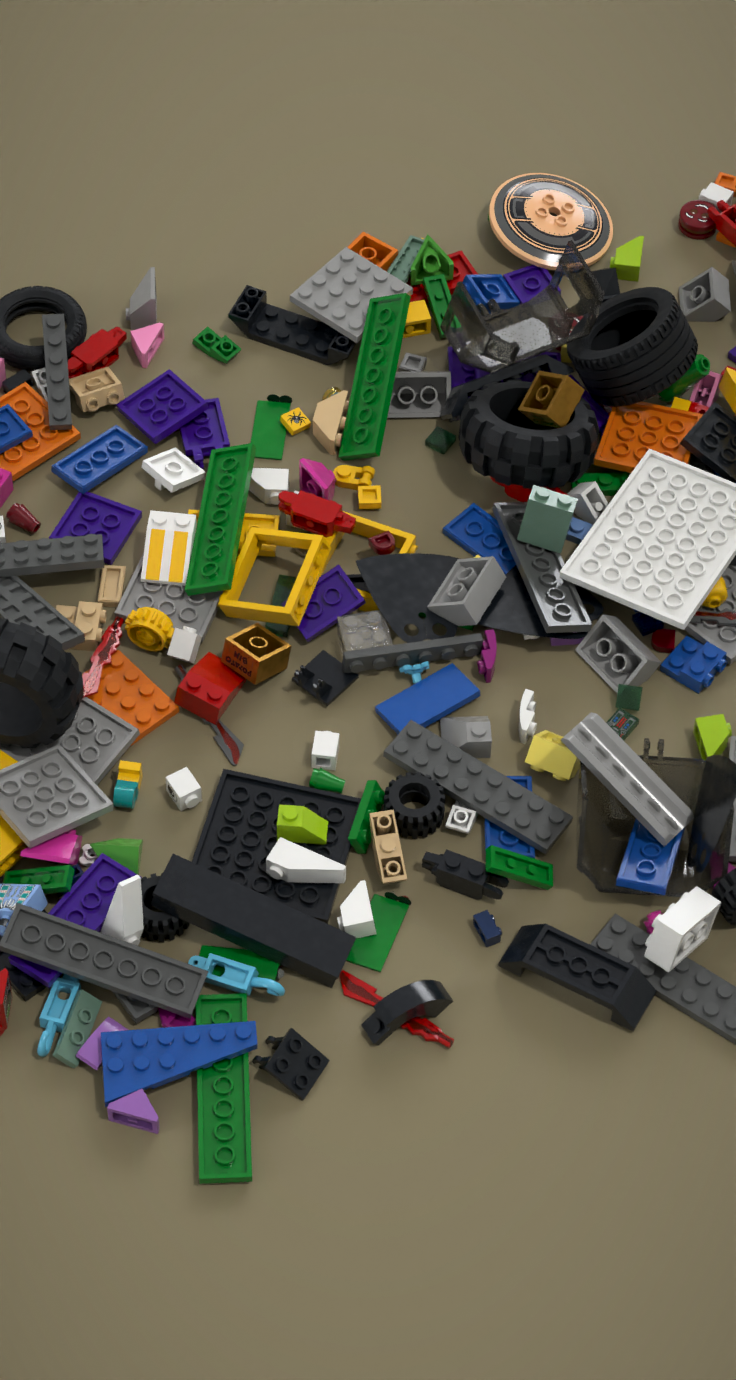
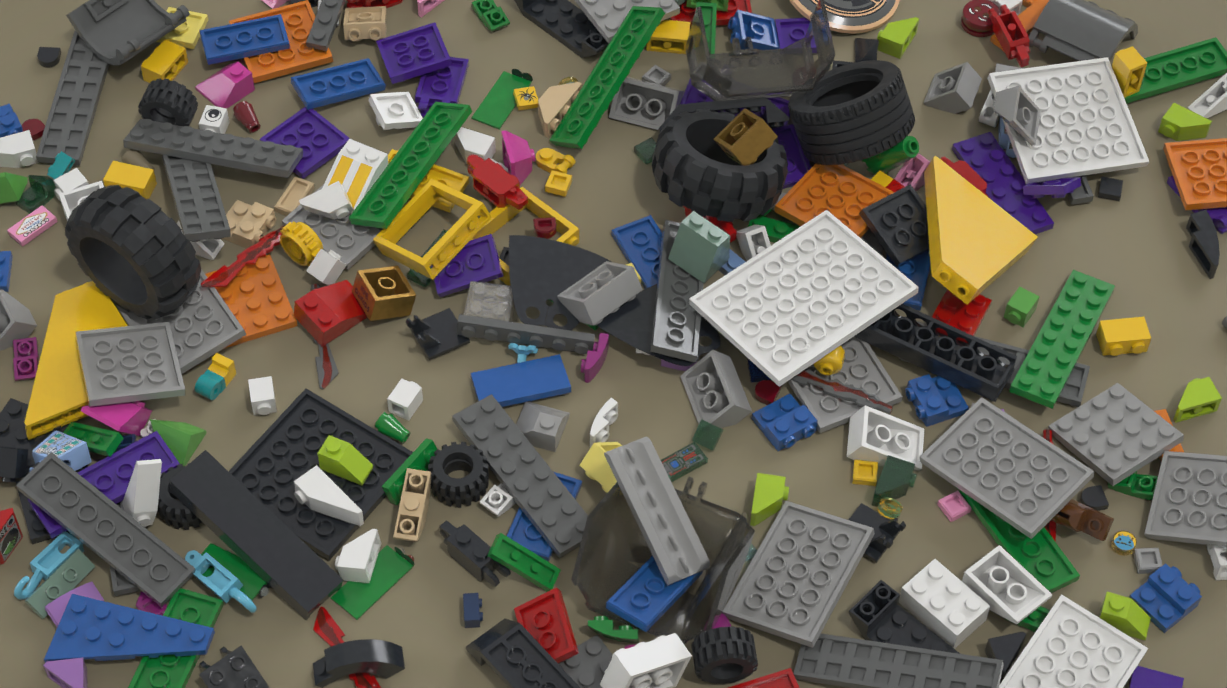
camera: 20 degrees right, 0 degrees up
(158, 580) = (328, 202): none -> white slope
(569, 914) = (549, 624): none -> red plate
(622, 904) = (605, 628): none -> green slope

